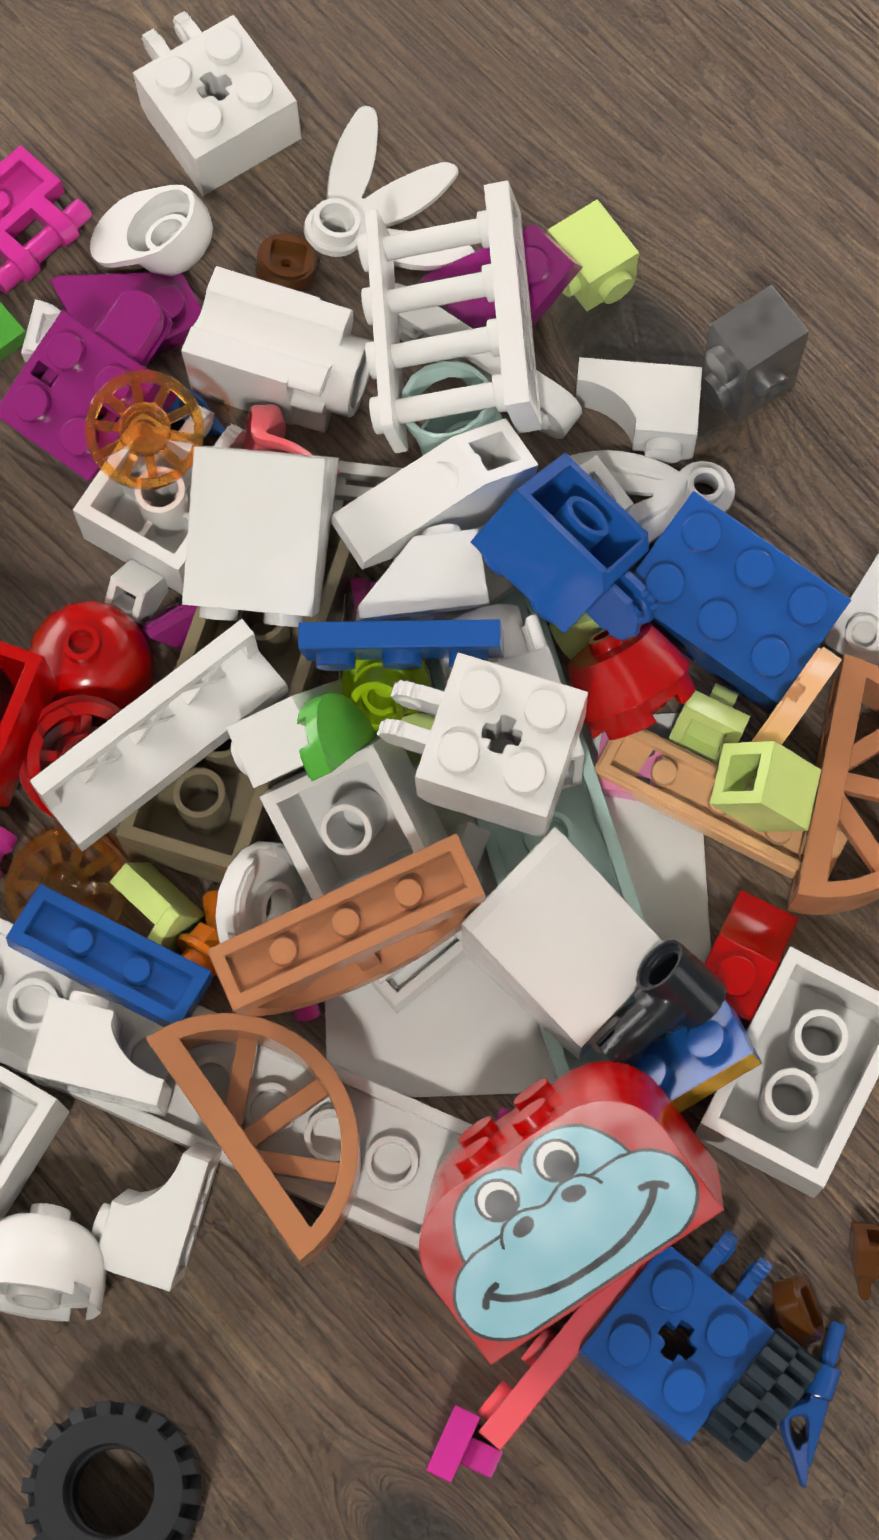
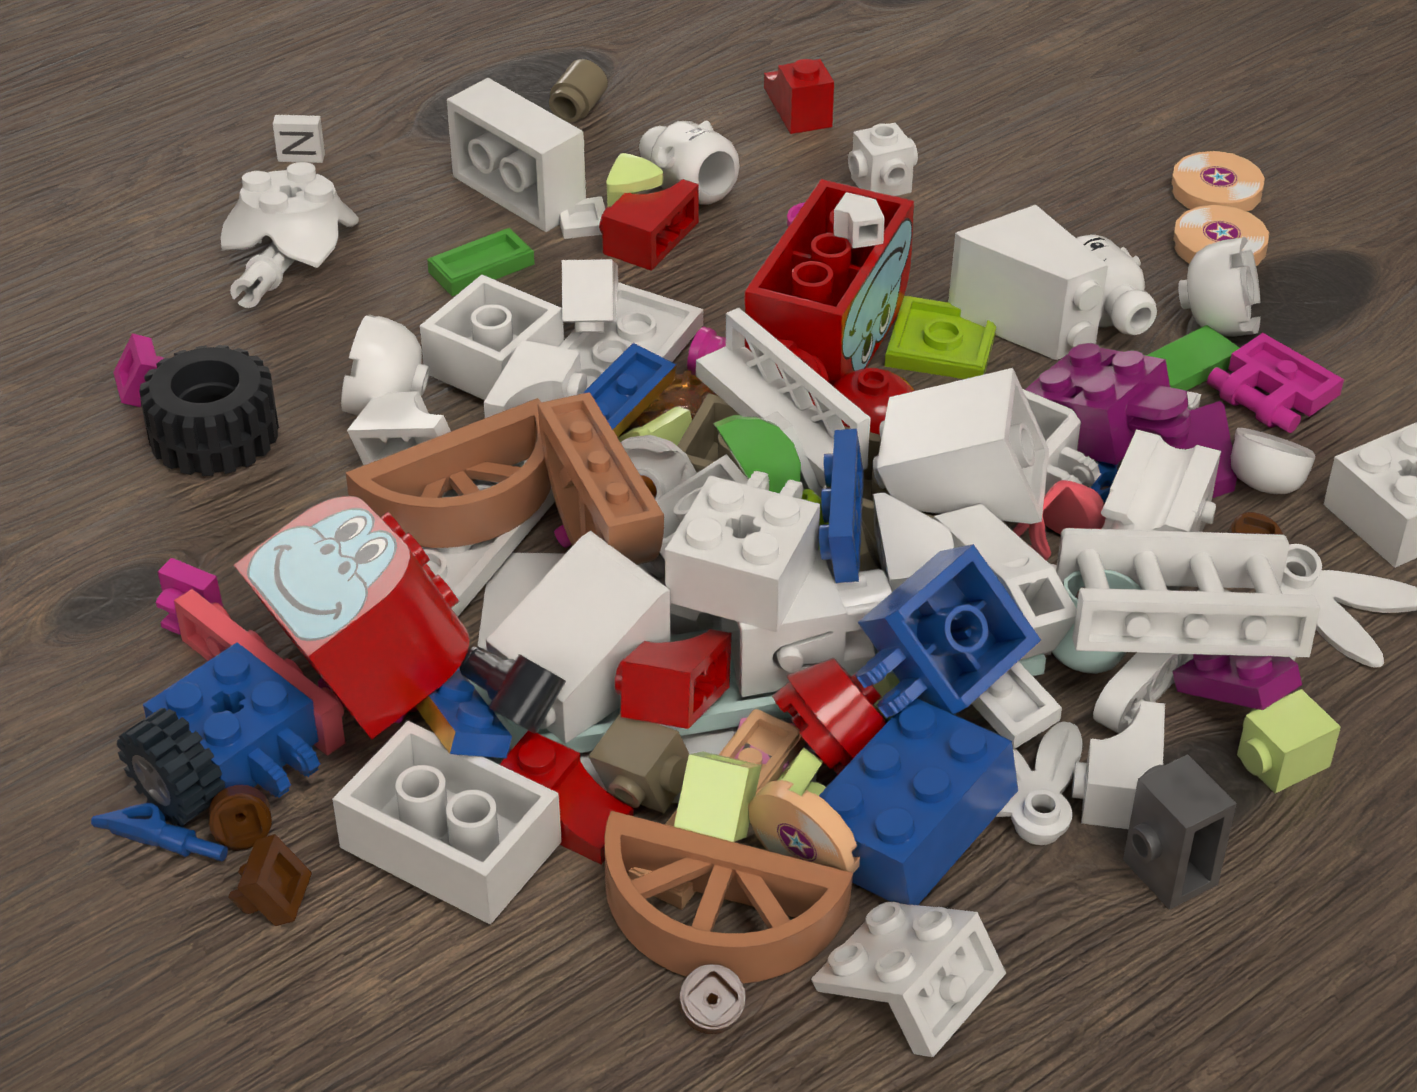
camera: 90 degrees right, 30 degrees down
(143, 429) = (1058, 397): clear orange wheel -> none
(625, 837) = (674, 679): none -> red arch
(699, 876) = (641, 763): none -> dark tan brick

